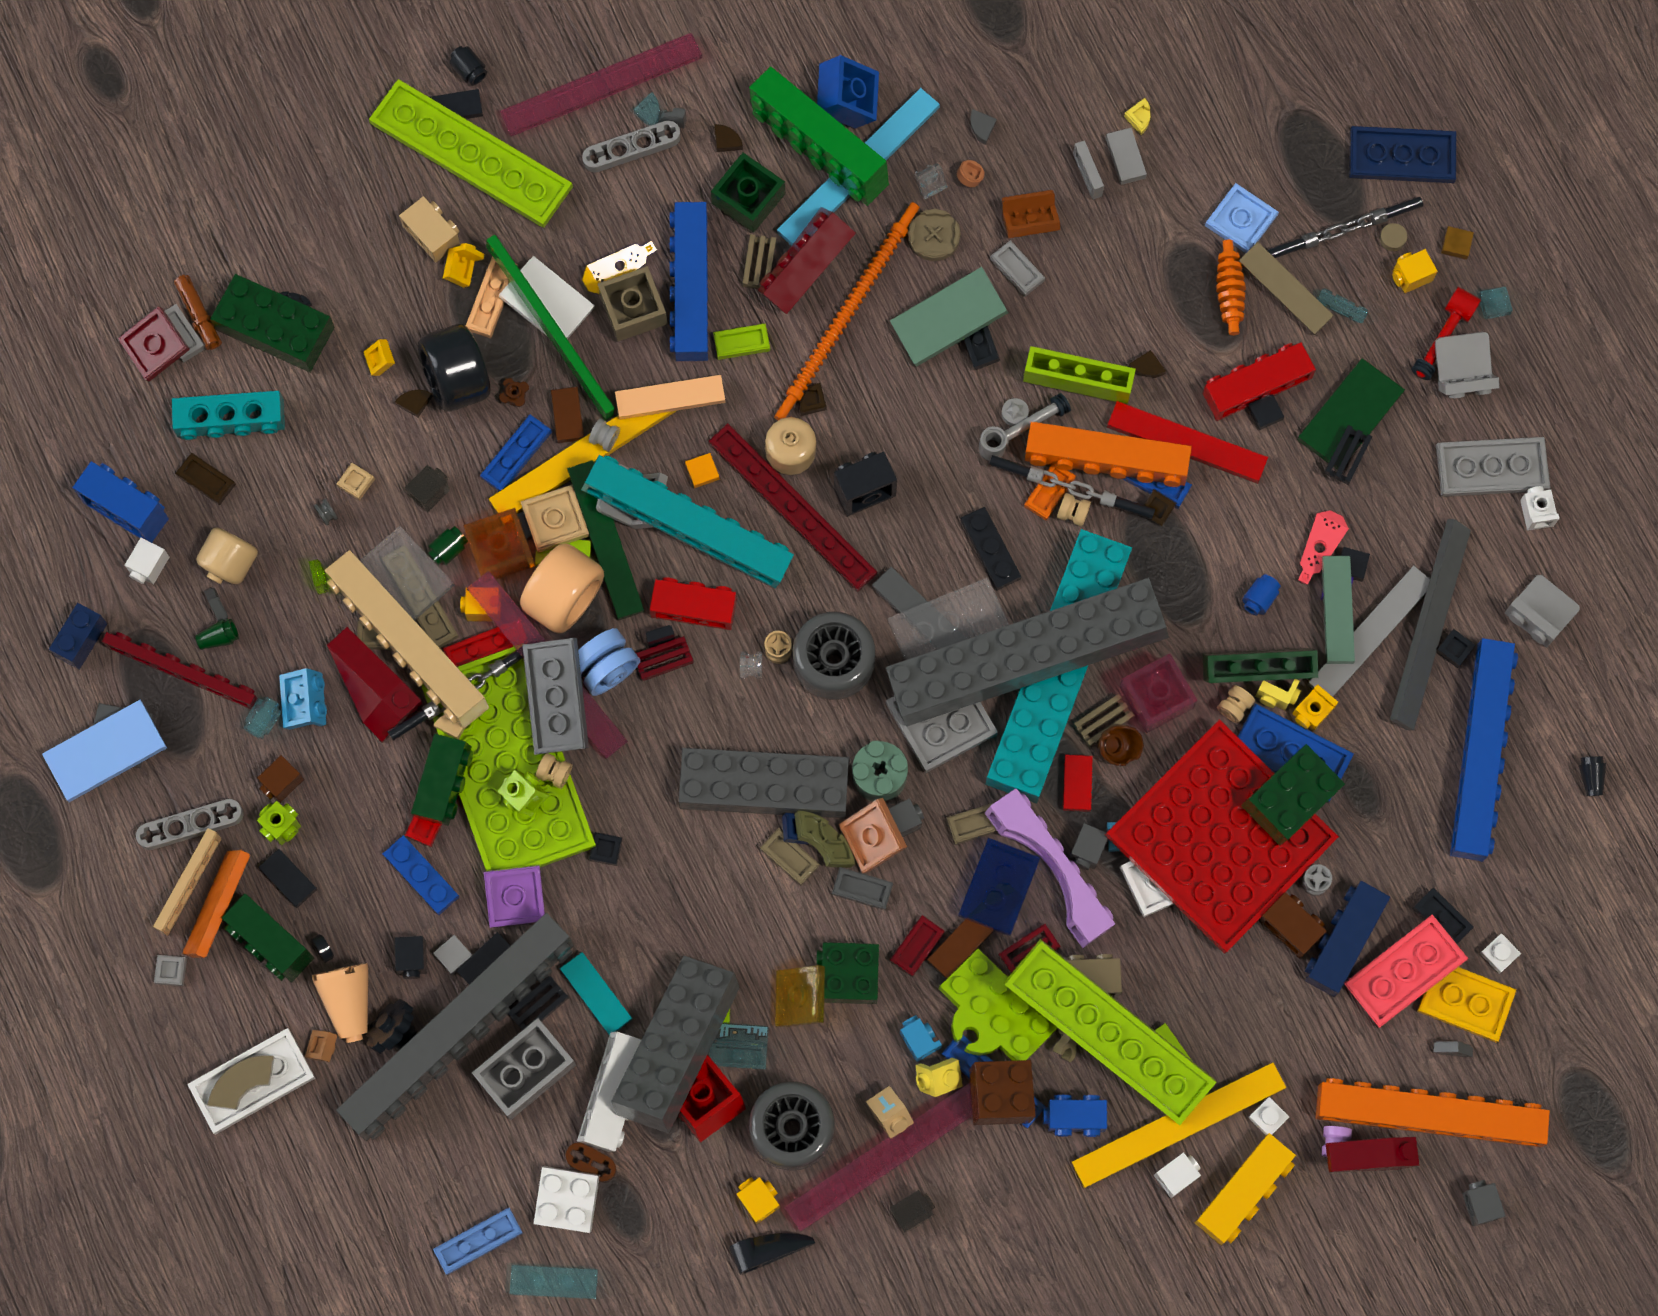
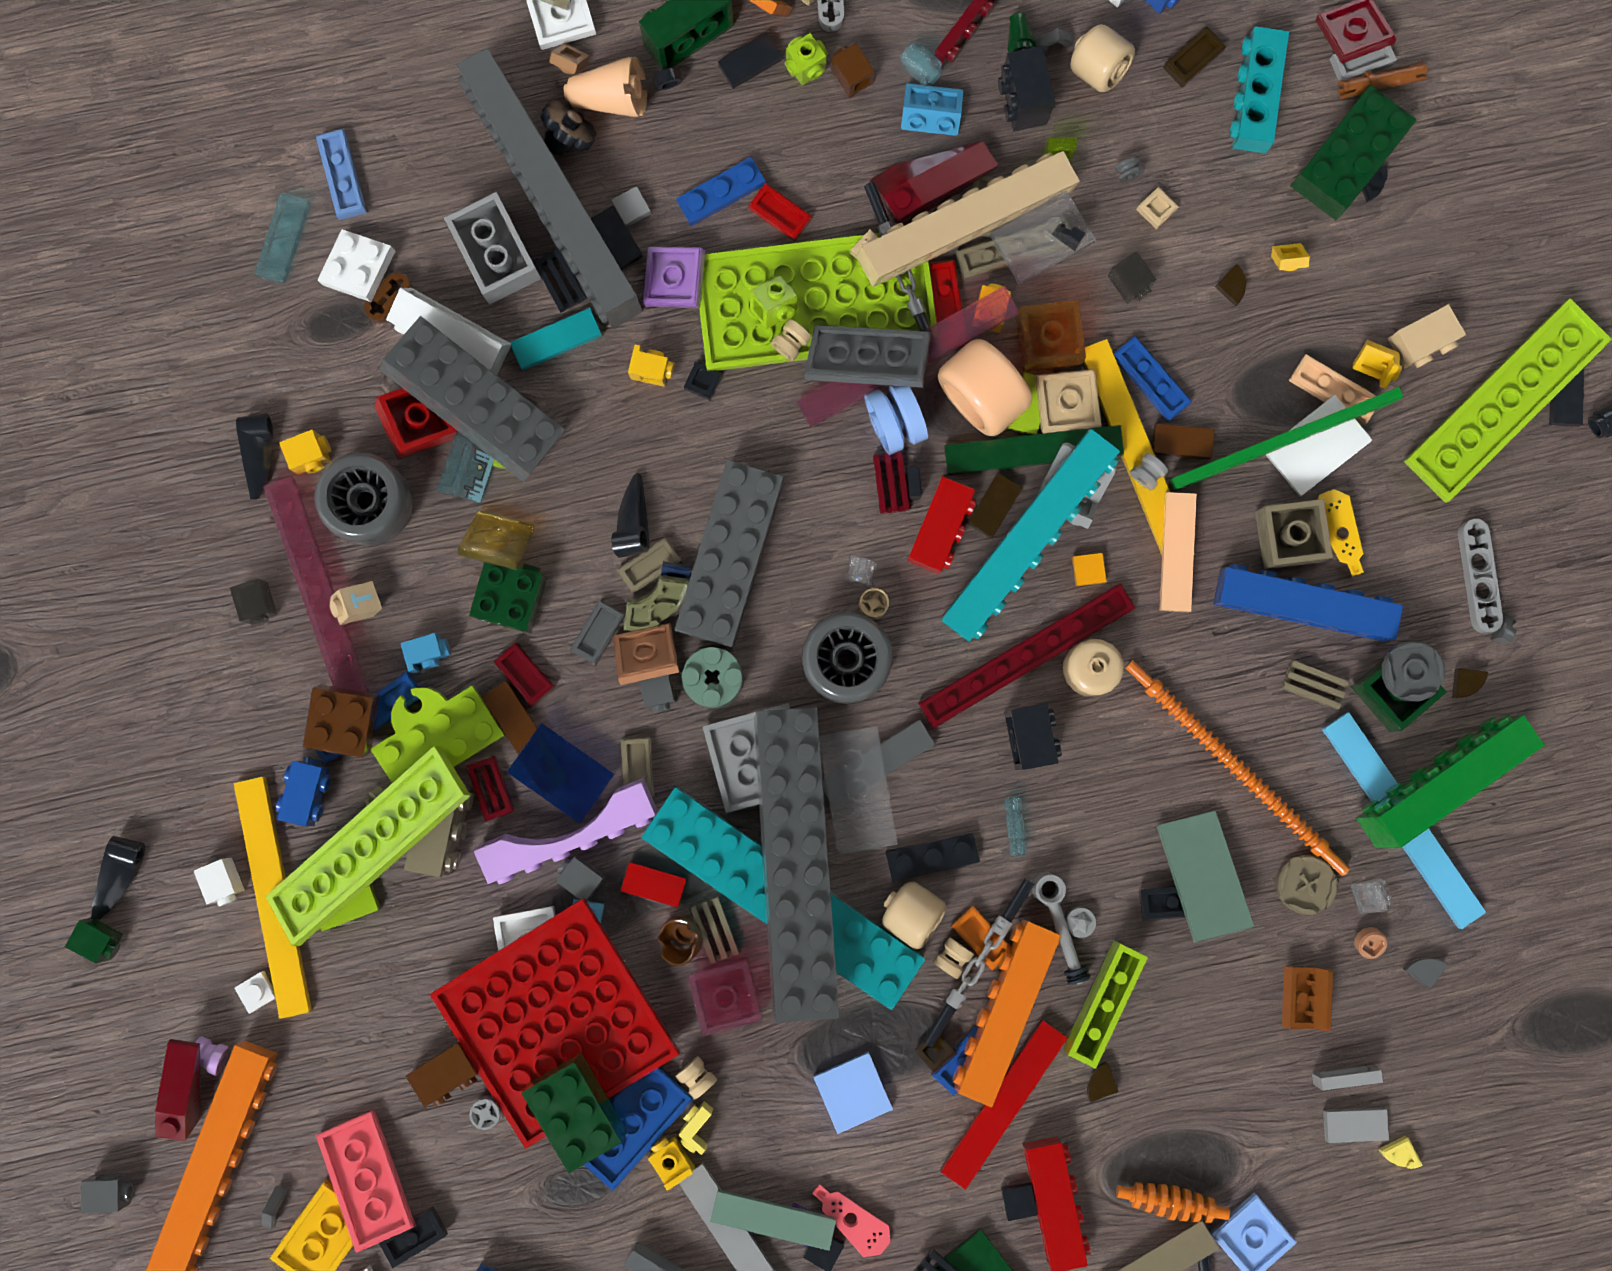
camera: 105 degrees right, 10 degrees up
(271, 615) = (1026, 88): none -> black brick
(406, 543) = (1071, 238): none -> black tile
(410, 956) = (637, 162): black brick -> none
(442, 780) = (808, 225): dark green brick -> none
(447, 546) = (1063, 283): dark green brick -> none
(454, 367) = (1259, 325): black wheel -> none
(517, 399) = (1212, 393): reddish brown plate -> none
(601, 84) = (1561, 560): clear pink tile -> none
(604, 897) = (650, 366): none -> yellow brick
(648, 110) = (1520, 604): clear light blue tile -> none
(663, 563) = (994, 506): none -> dark brown tile
(731, 182) = (1413, 671): none -> dark grey tile
(741, 341) = (1226, 644): lime tile -> none
(754, 881) = (632, 522): none -> black piece
(806, 259) = (1304, 733): dark red wedge -> none
(813, 400) = (1142, 706): dark brown tile -> none
(848, 91) = (1497, 827): blue brick -> none
(939, 1077) = (378, 662): light yellow bracket -> none
(945, 483) = (1015, 826): none -> clear light blue axle
(1017, 268) = (1247, 967): light grey tile -> none
(1045, 550) = (913, 914): none -> tan head
(1195, 1274) = (116, 872): none -> black piece
(1212, 569) = (853, 1092): none -> light blue tile
(1245, 1189) = (186, 947): yellow brick -> none
(1260, 665) = (729, 1116): dark green brick -> none
(1261, 595) = (810, 1138): blue brick -> none
(1262, 1277) = (94, 940): none -> dark green brick
(1346, 939) = (415, 1128): dark blue brick -> none

